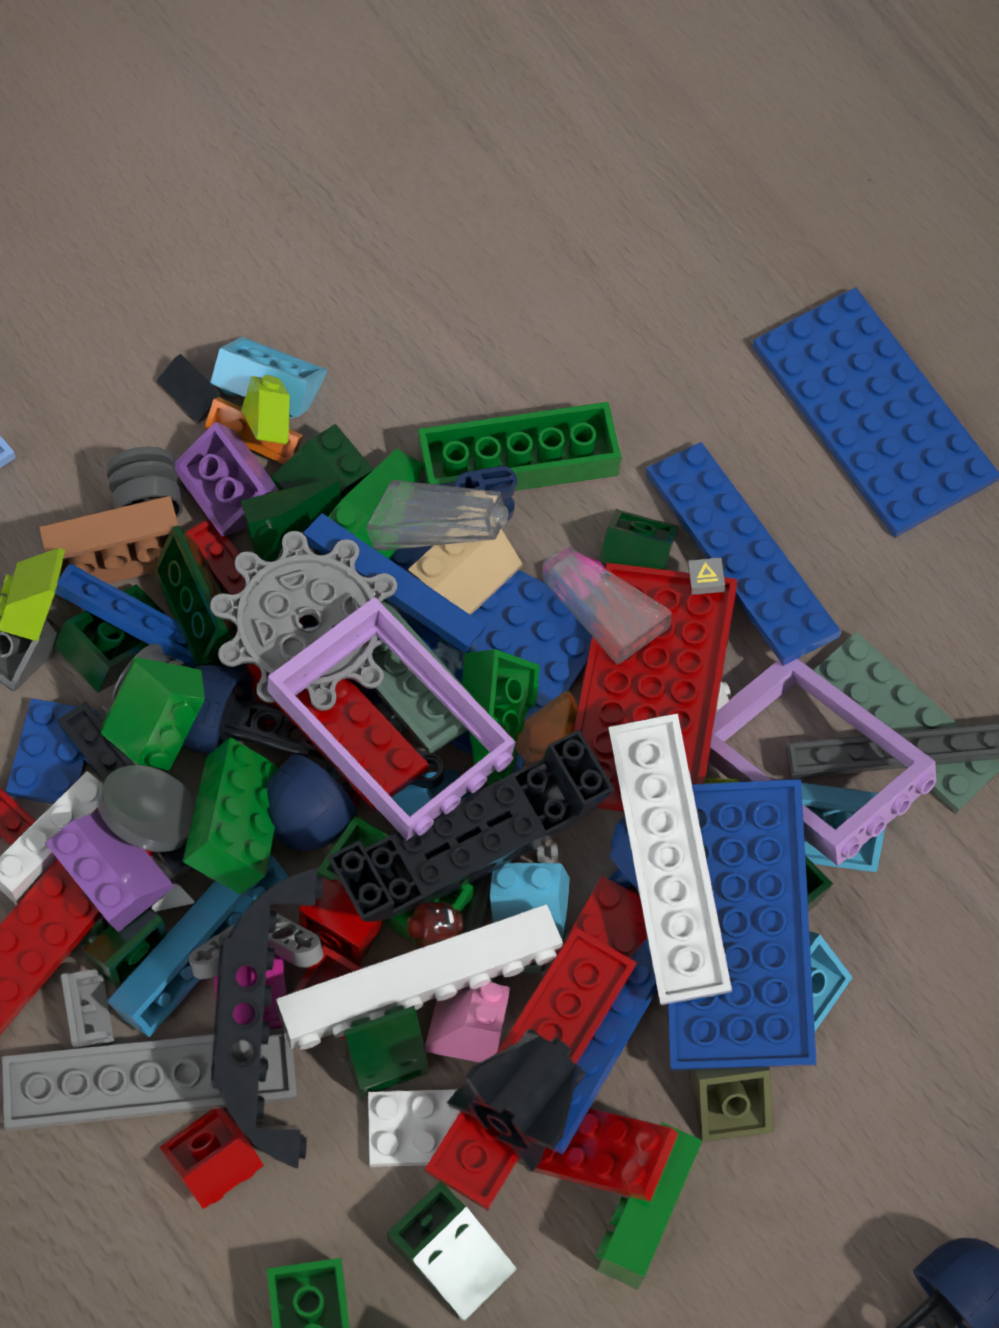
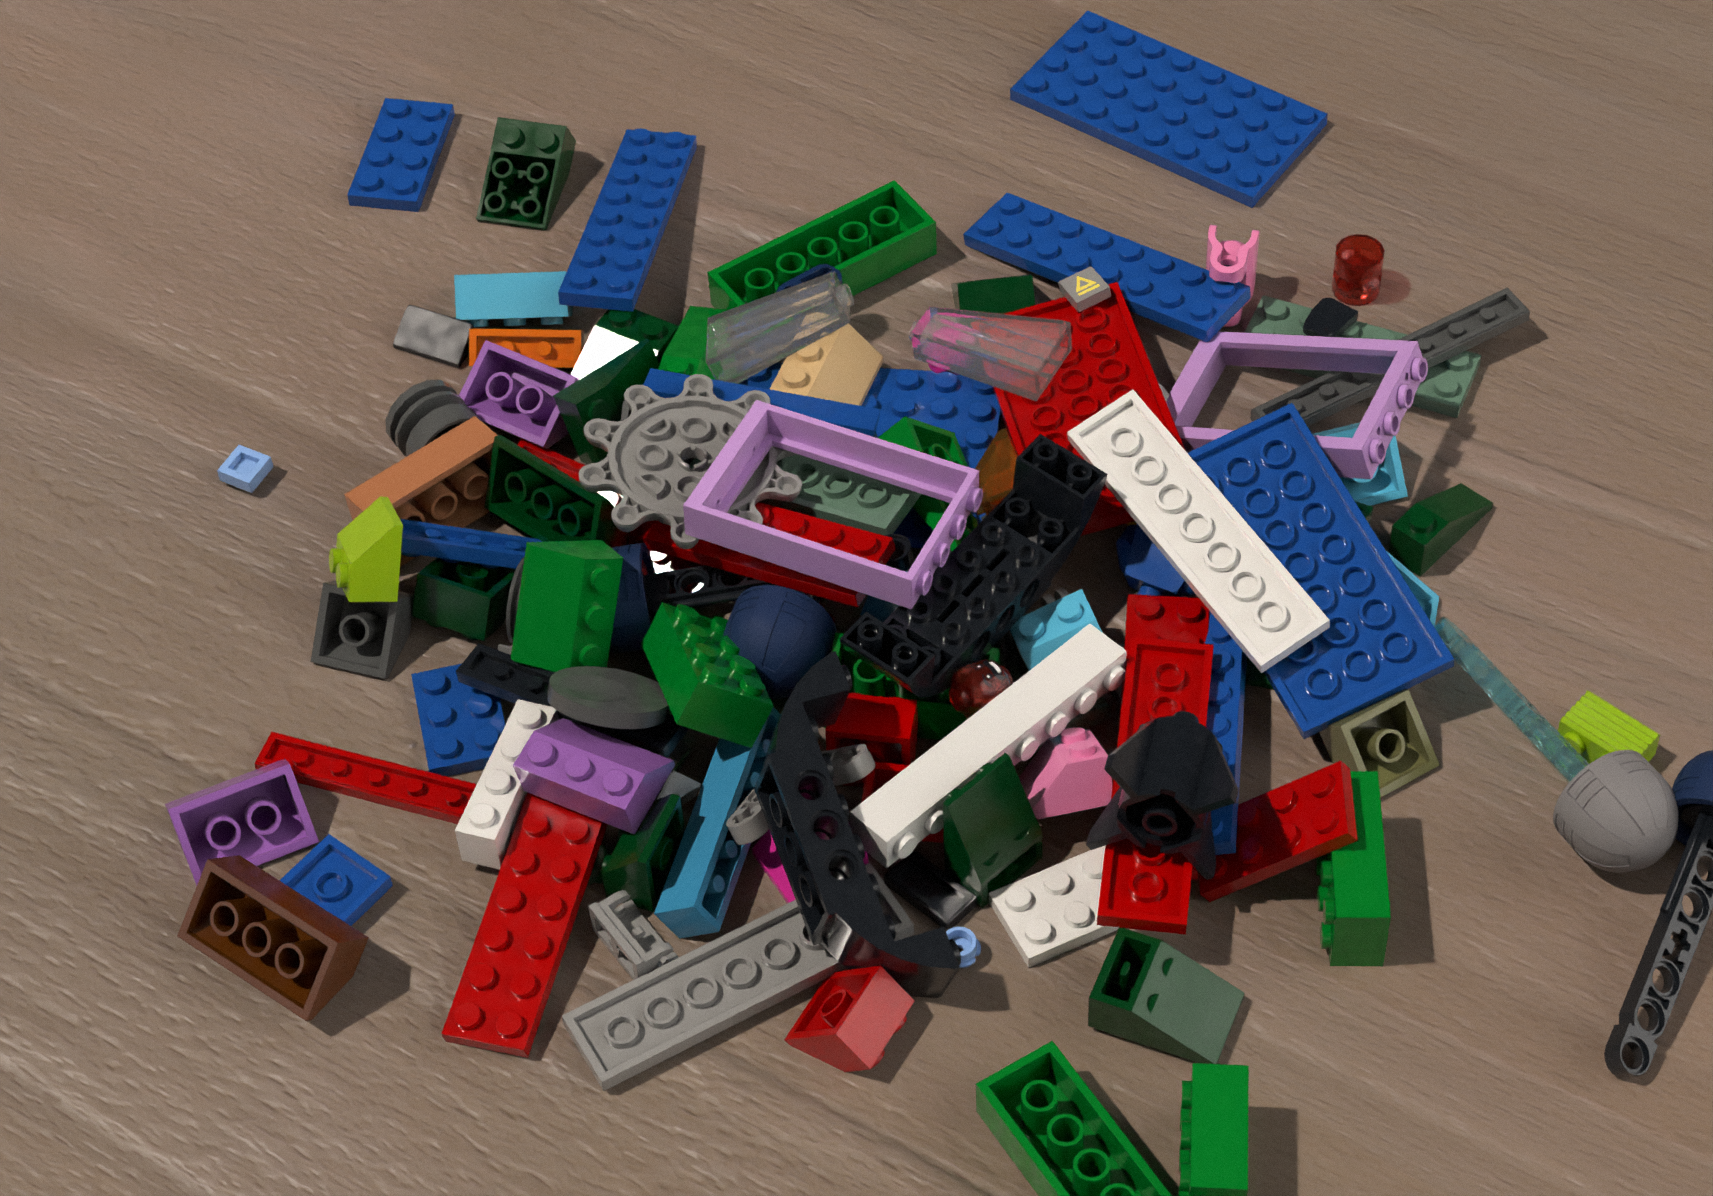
camera: 15 degrees left, 15 degrees down
(244, 198) = (401, 155): none -> blue plate
(267, 409) = (535, 307): lime slope -> none
(320, 1120) = (967, 941): none -> light blue plate
(328, 263) = (525, 173): none -> dark green slope
(330, 1071) = (930, 890): none -> black tile
(384, 346) = (628, 220): none -> blue plate
(840, 599) = (1233, 263): none -> bright pink piece
(876, 1255) = (1613, 809): none -> light grey piece
(884, 913) = (1435, 526): none -> dark green slope
(890, 685) = (1329, 318): none -> black piece
(913, 1172) = (1601, 728): none -> lime brick
(943, 643) = (1357, 270): none -> clear red wheel

